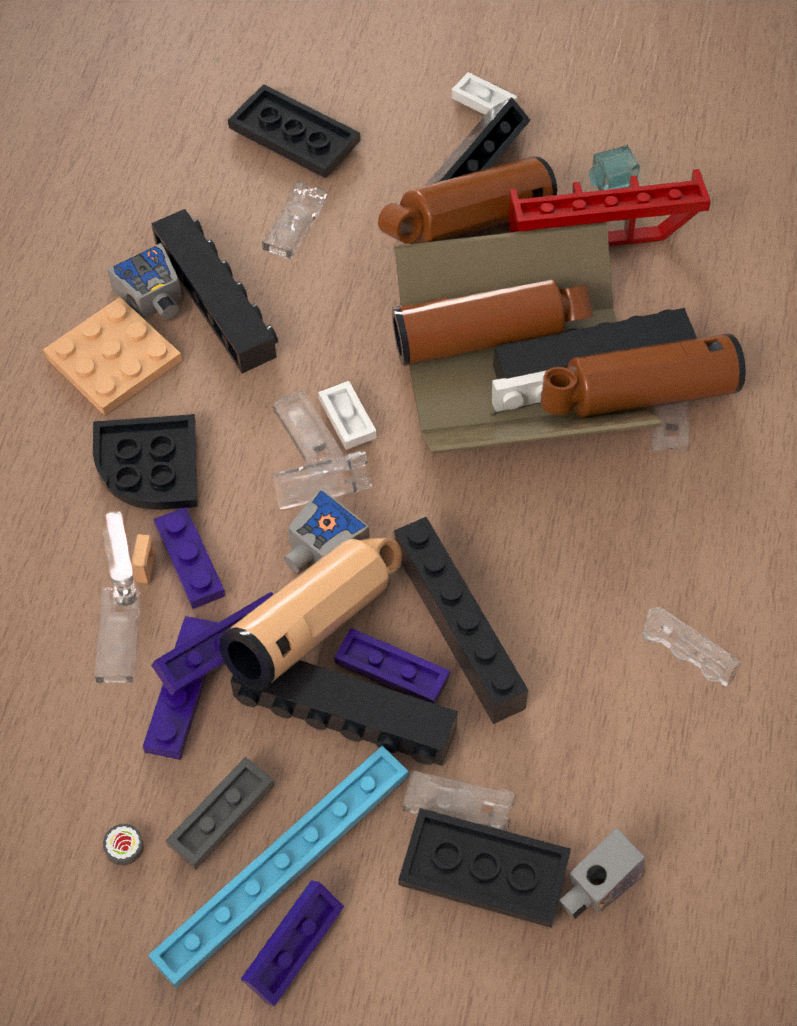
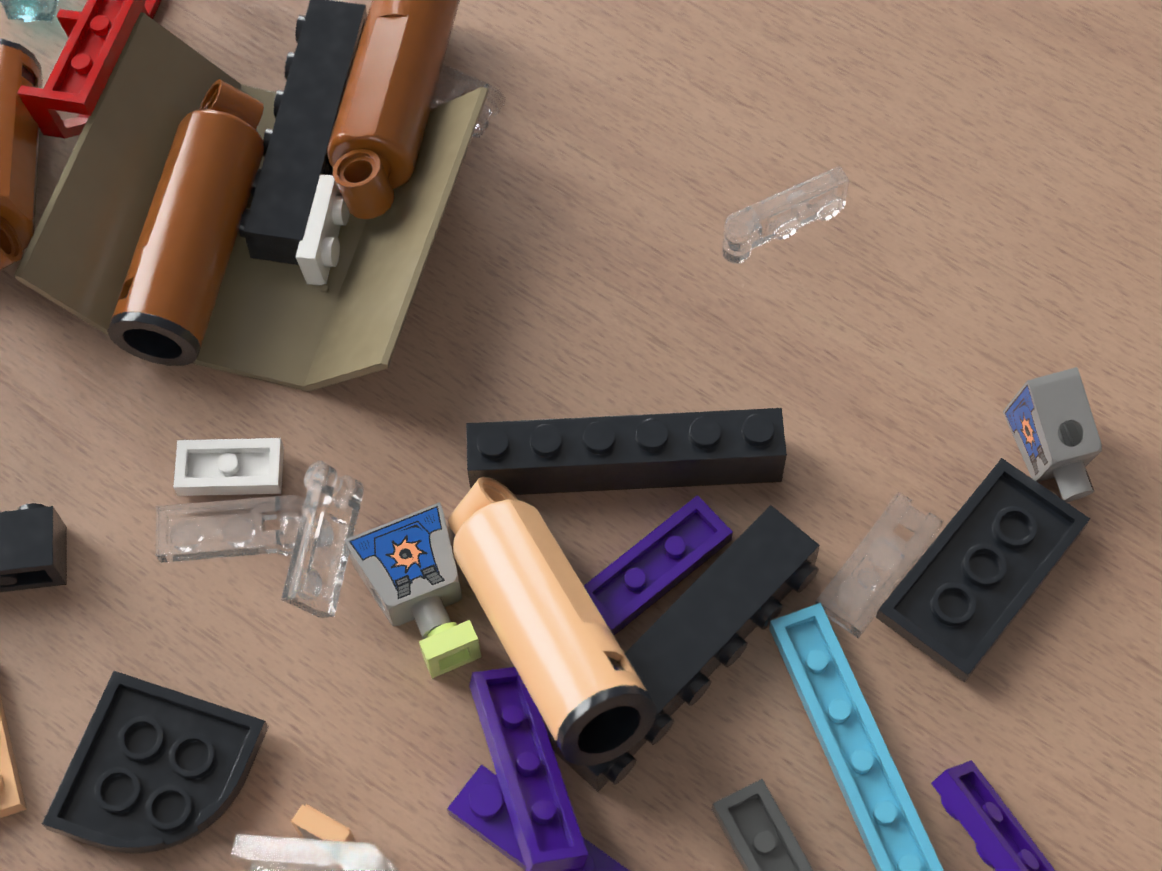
camera: 65 degrees left, 5 degrees up
(189, 557) = (346, 770): dark purple plate -> none
(280, 571) = (449, 647): none -> yellowish green plate

